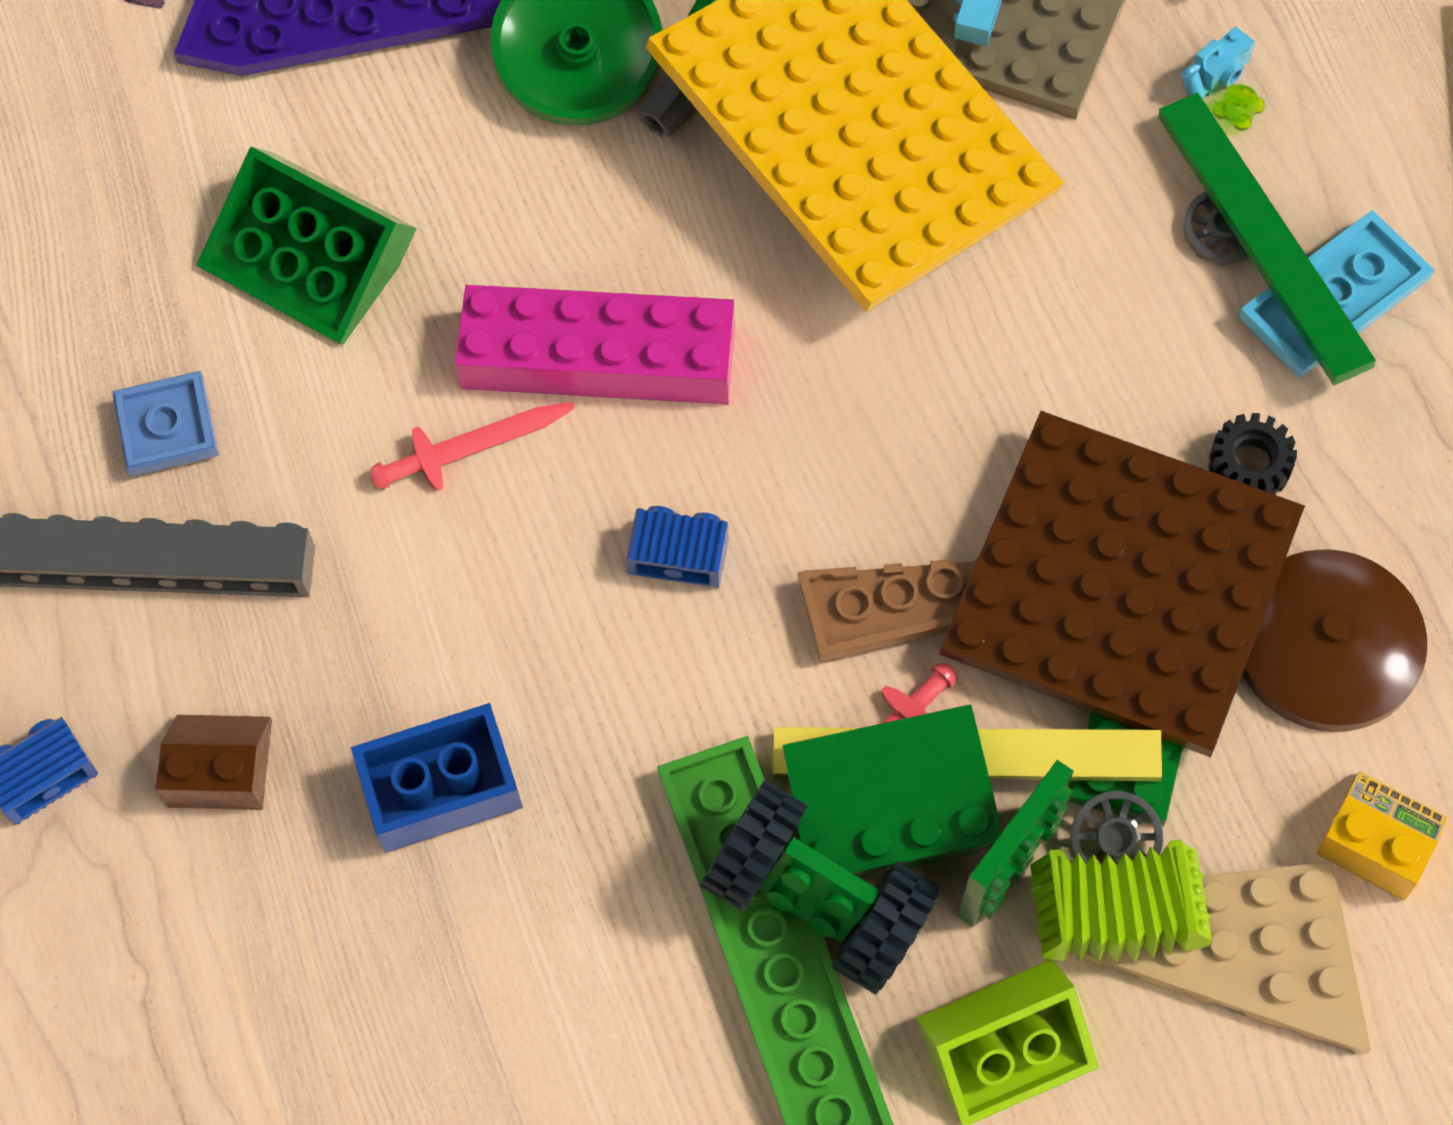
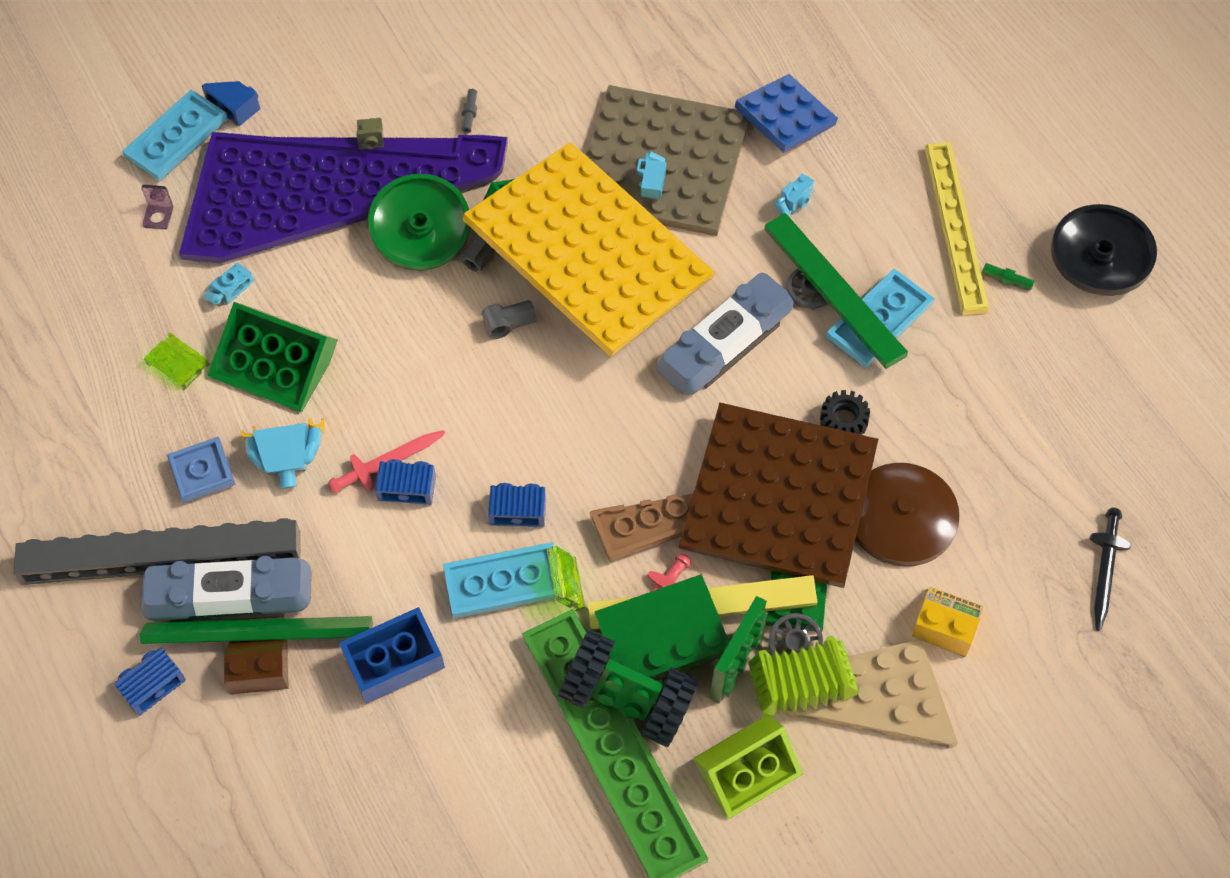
camera: 10 degrees left, 5 degrees down
(149, 235) = (176, 361): none -> clear neon green plate
(180, 633) = (226, 590): none -> sand blue piece
(220, 705) = (254, 629): none -> green tile
(250, 114) = (229, 285): none -> medium azure piece
(305, 405) = (284, 449): none -> medium azure torso
(497, 484) = (405, 482): none -> blue brick
(596, 344) = (453, 394): dark pink brick -> none
(638, 671) = (499, 580): none -> medium azure plate
(692, 225) = (501, 320): none -> dark grey piece
(742, 682) = (565, 578): none -> clear neon green plate
(1067, 294) = (725, 335): none -> sand blue piece
(1240, 96) = (810, 212): clear neon green plate -> none

